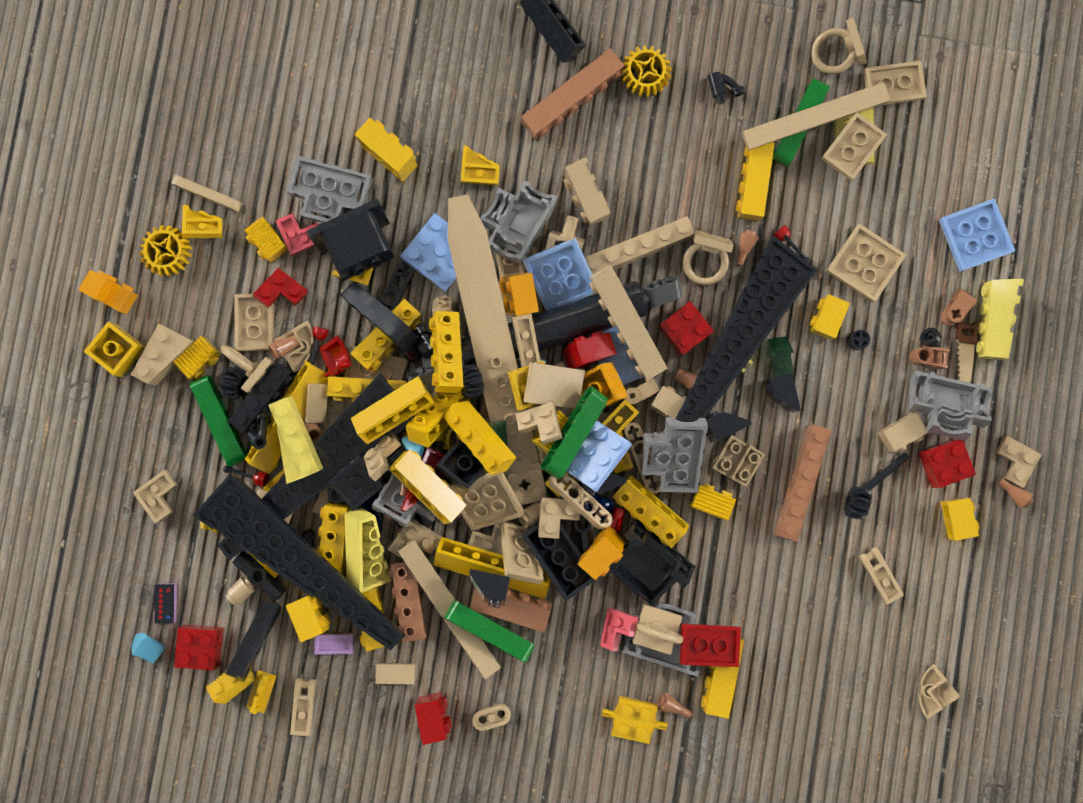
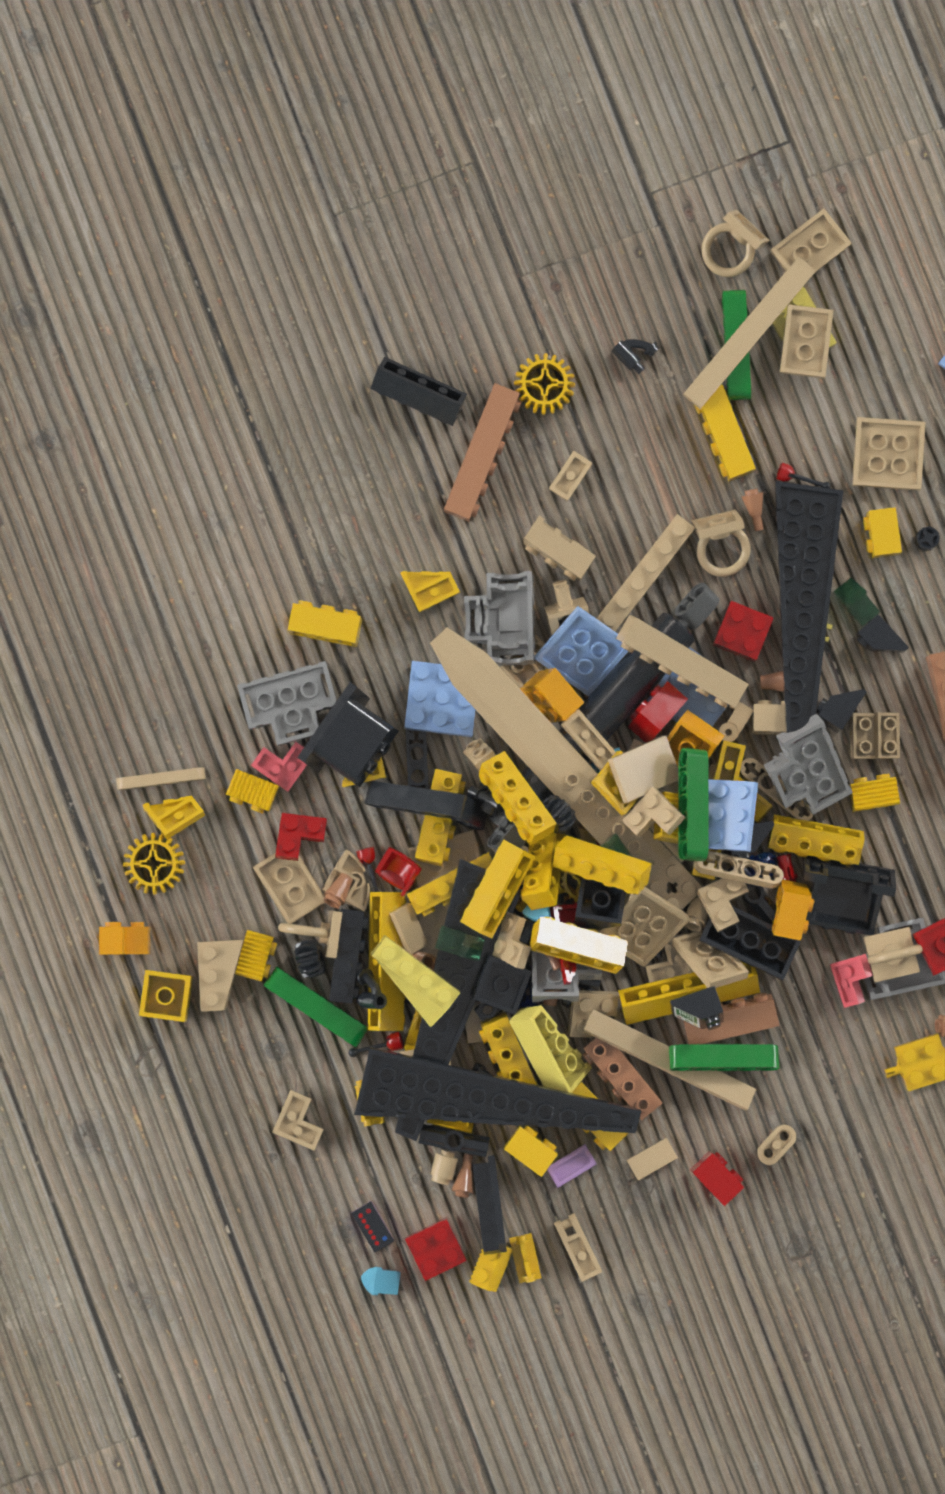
camera: 30 degrees left, 0 degrees up
(248, 611) = (464, 1184): none -> nougat cone
(343, 434) = (460, 943): none -> clear green slope
(626, 147) = (570, 476): none -> tan plate

